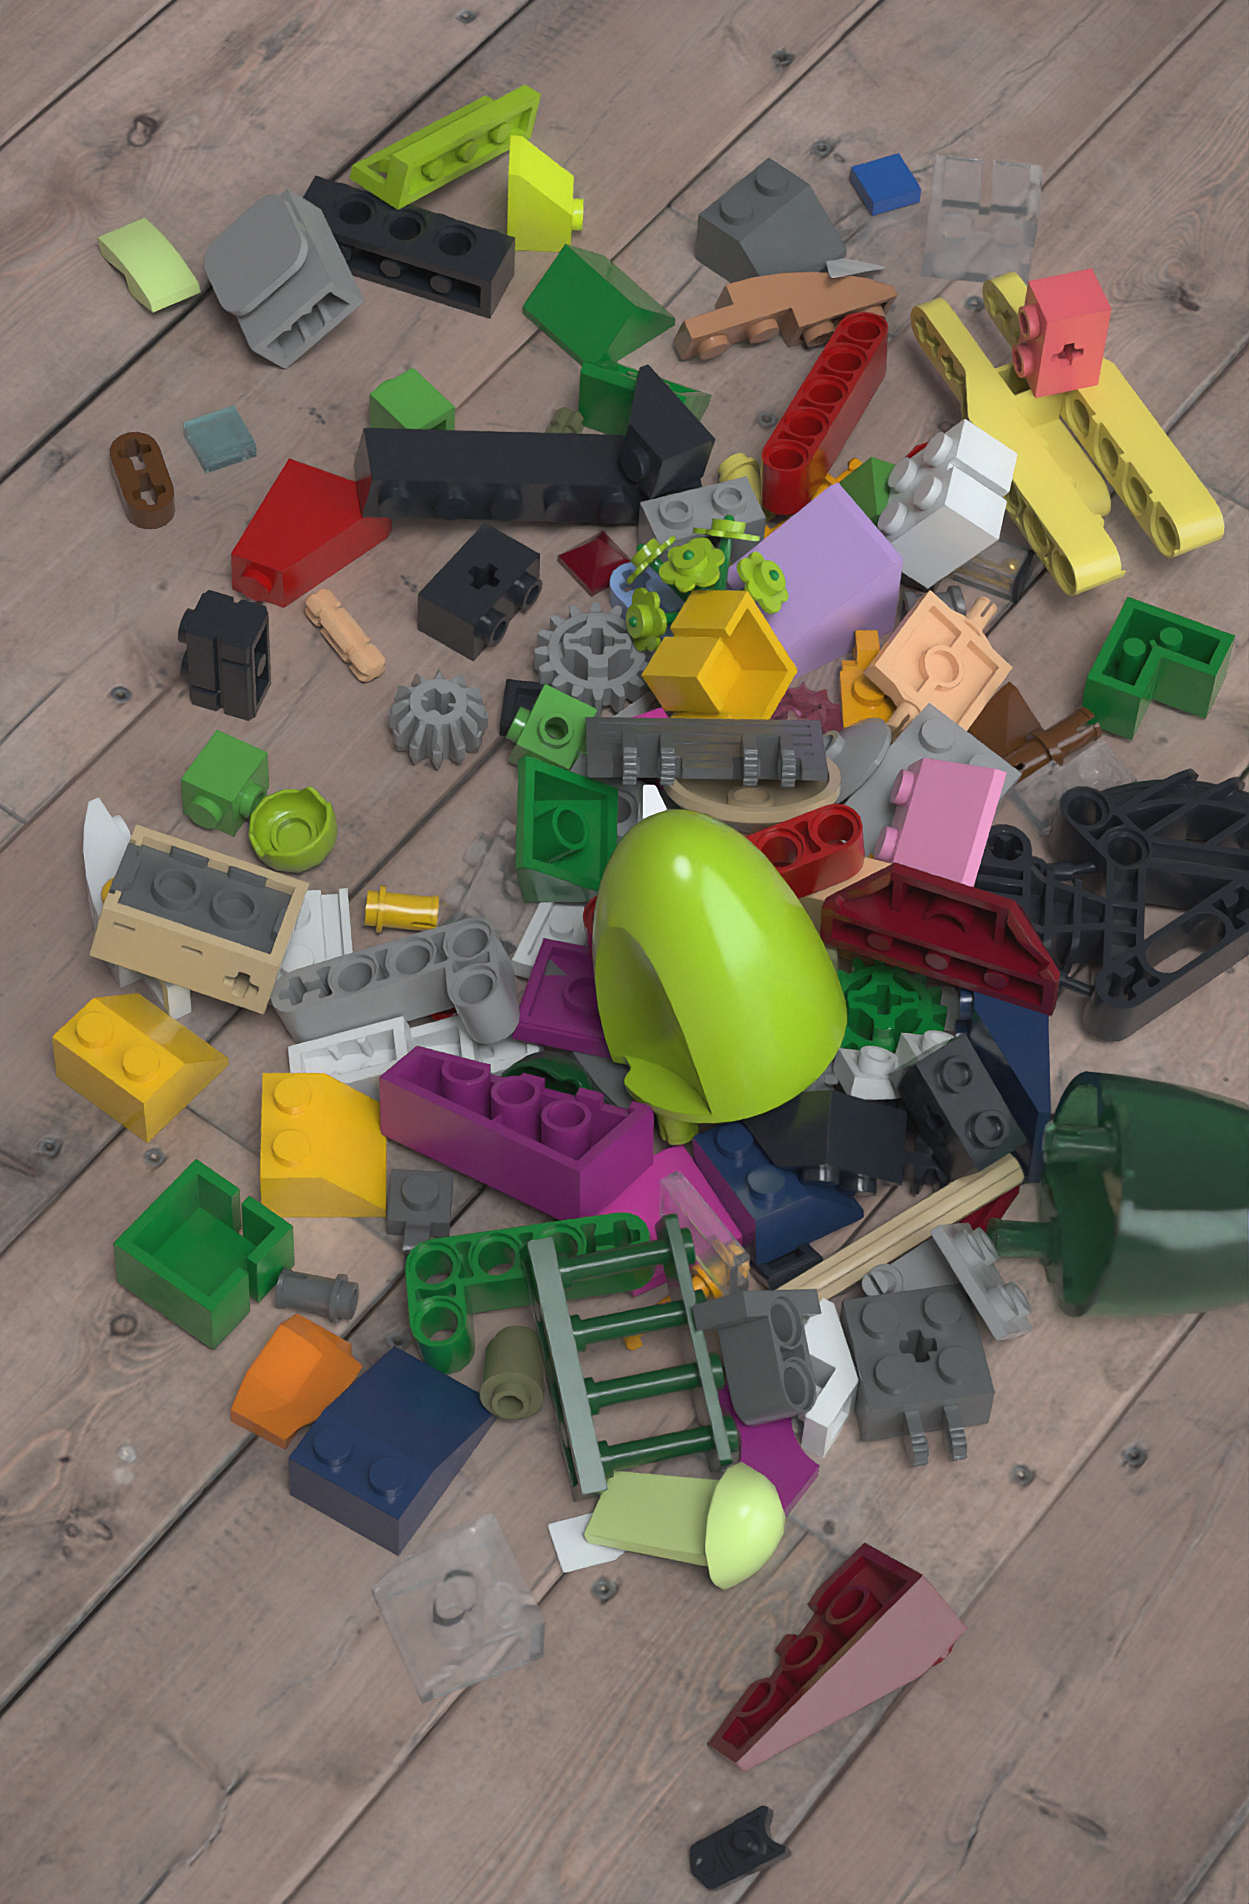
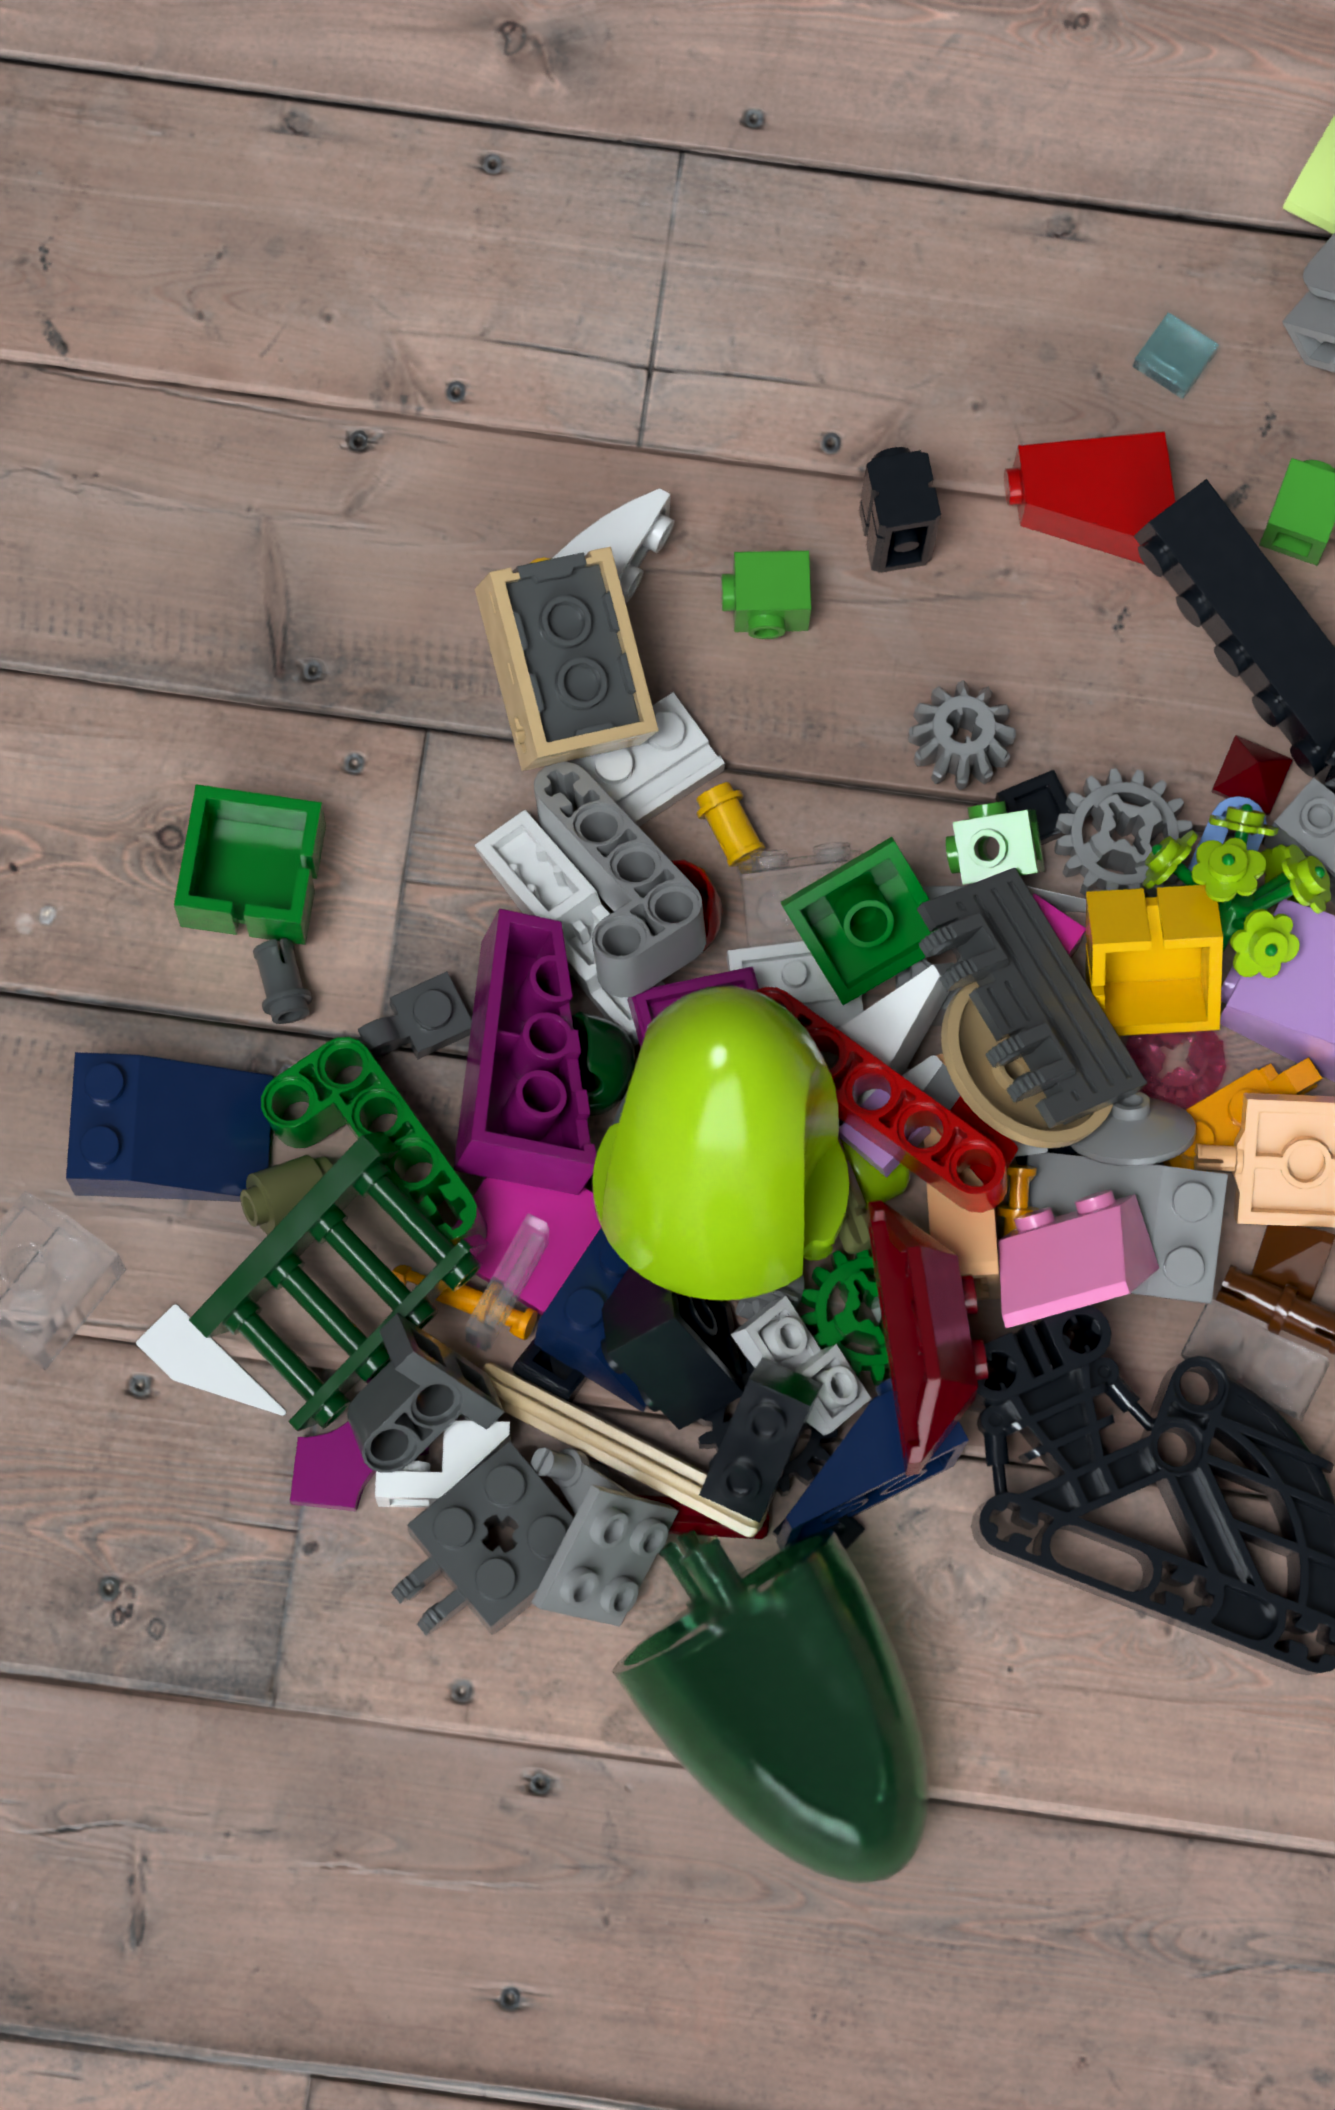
camera: 60 degrees right, 20 degrees up
(133, 482) = (1088, 325): reddish brown beam -> none
(134, 1061) = (431, 691): yellow slope -> none
(293, 829) = (753, 679): lime hair -> none
(293, 1380) = (188, 1012): orange slope -> none
(320, 1148) = (426, 897): yellow slope -> none
(345, 635) = (1014, 598): light nougat axle -> none
(479, 592) = (1165, 680): black brick -> none
(704, 1522) = (226, 1429): yellowish green piece -> none
(867, 1637) = (182, 1637): wedge -> none

